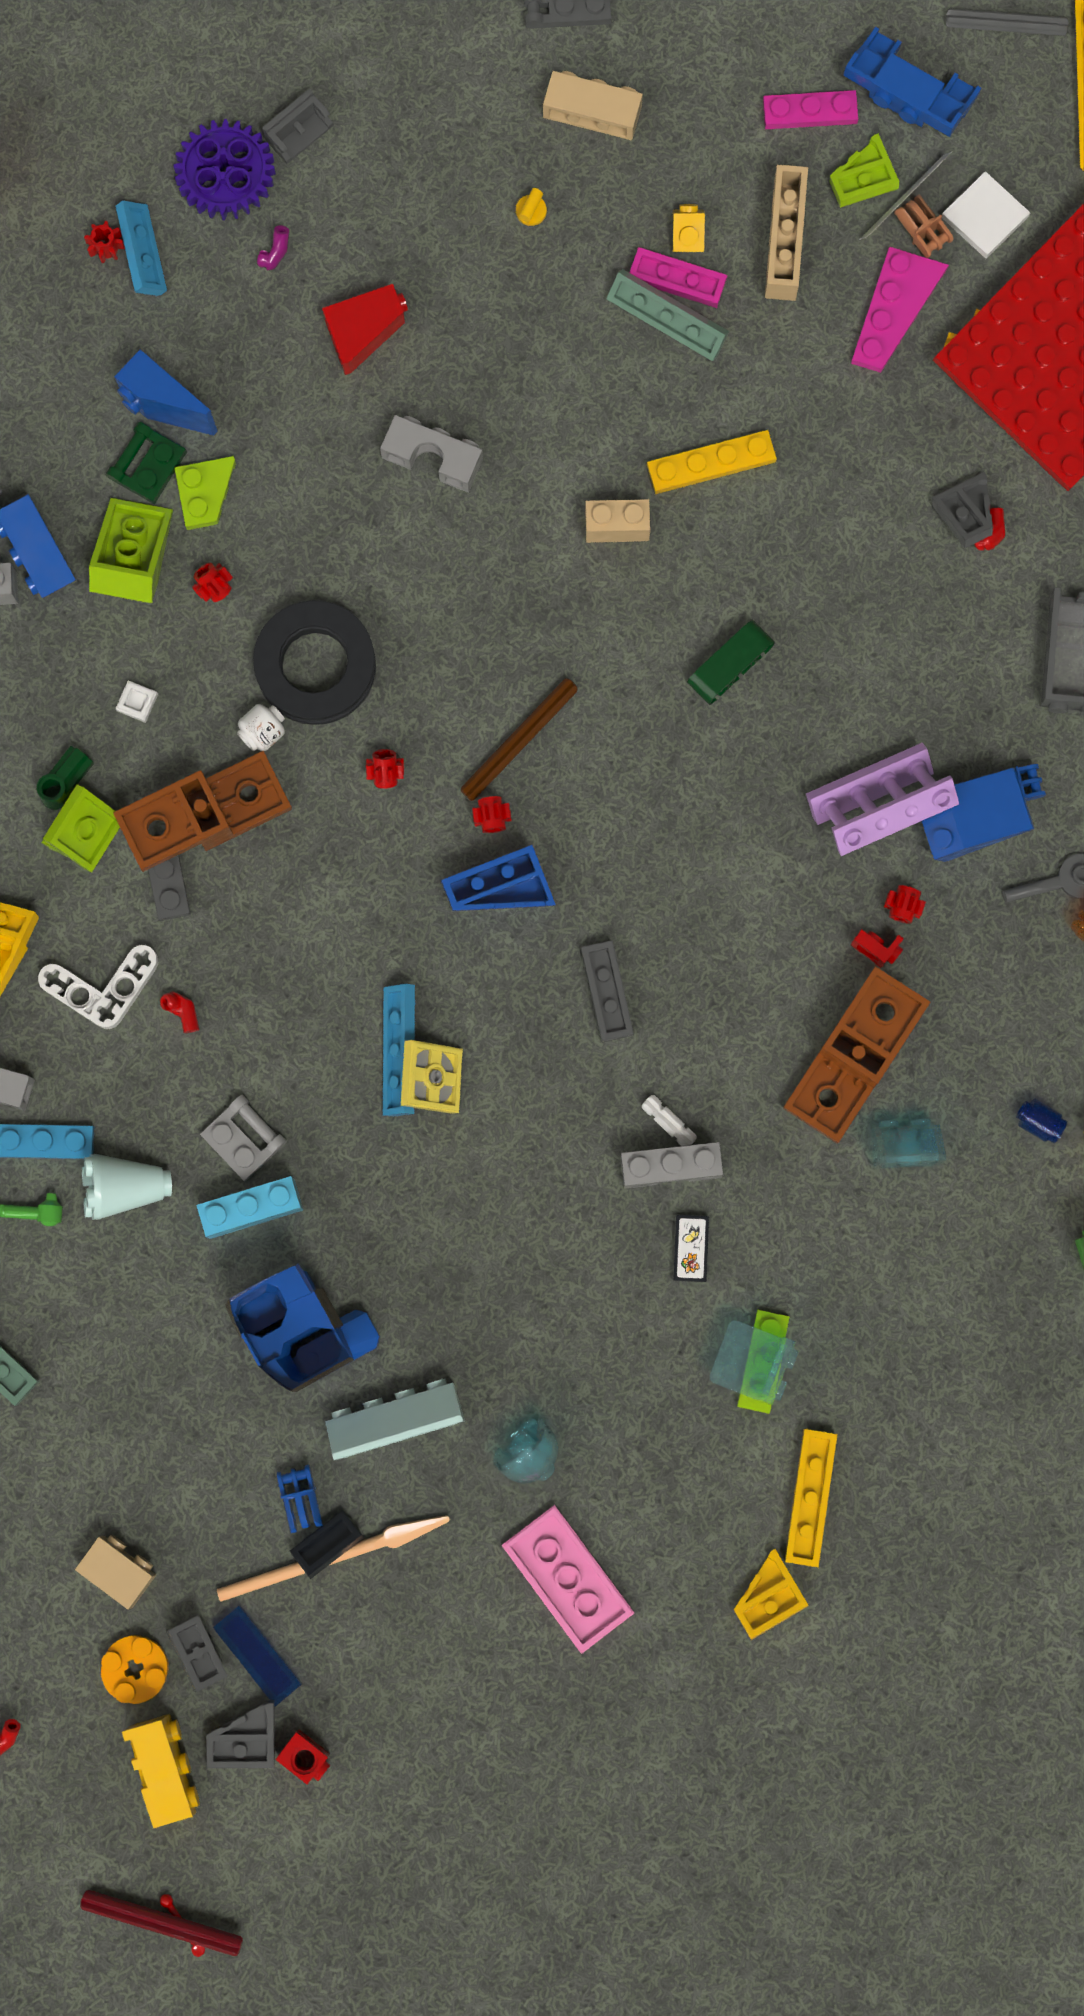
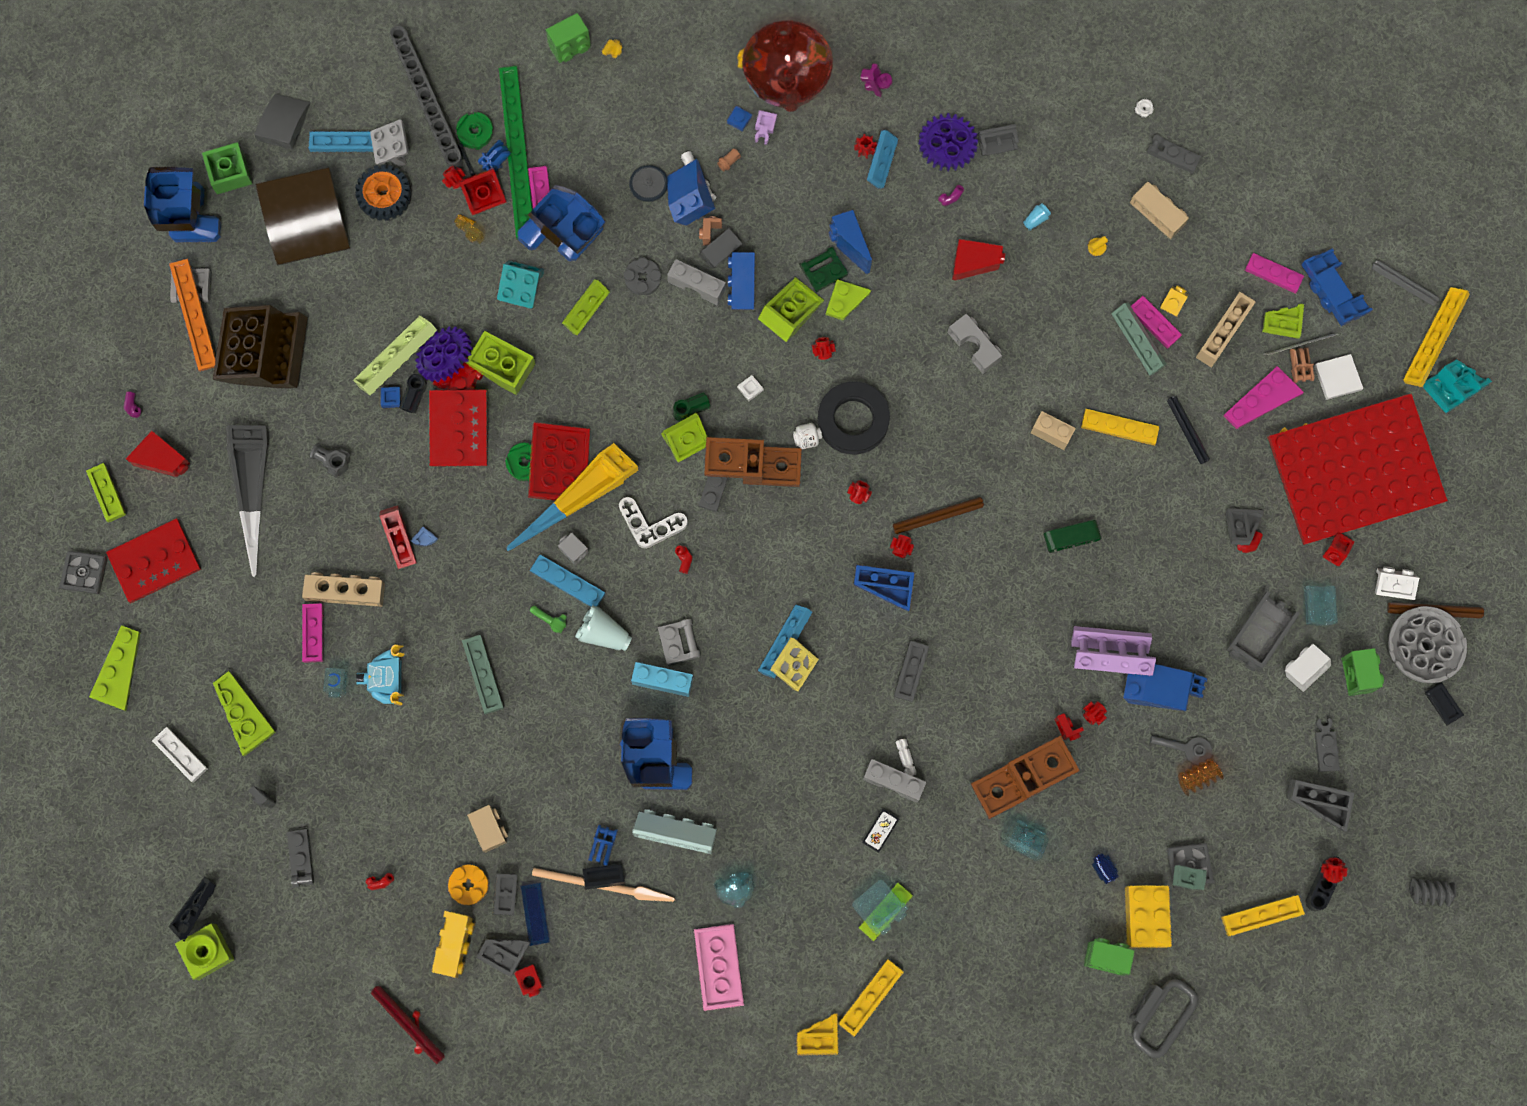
camera: 25 degrees right, 5 degrees down
(63, 131) = (876, 80): none -> magenta hips
(418, 211) = (1037, 216): none -> medium azure cone
(812, 412) = (1188, 429): none -> black axle

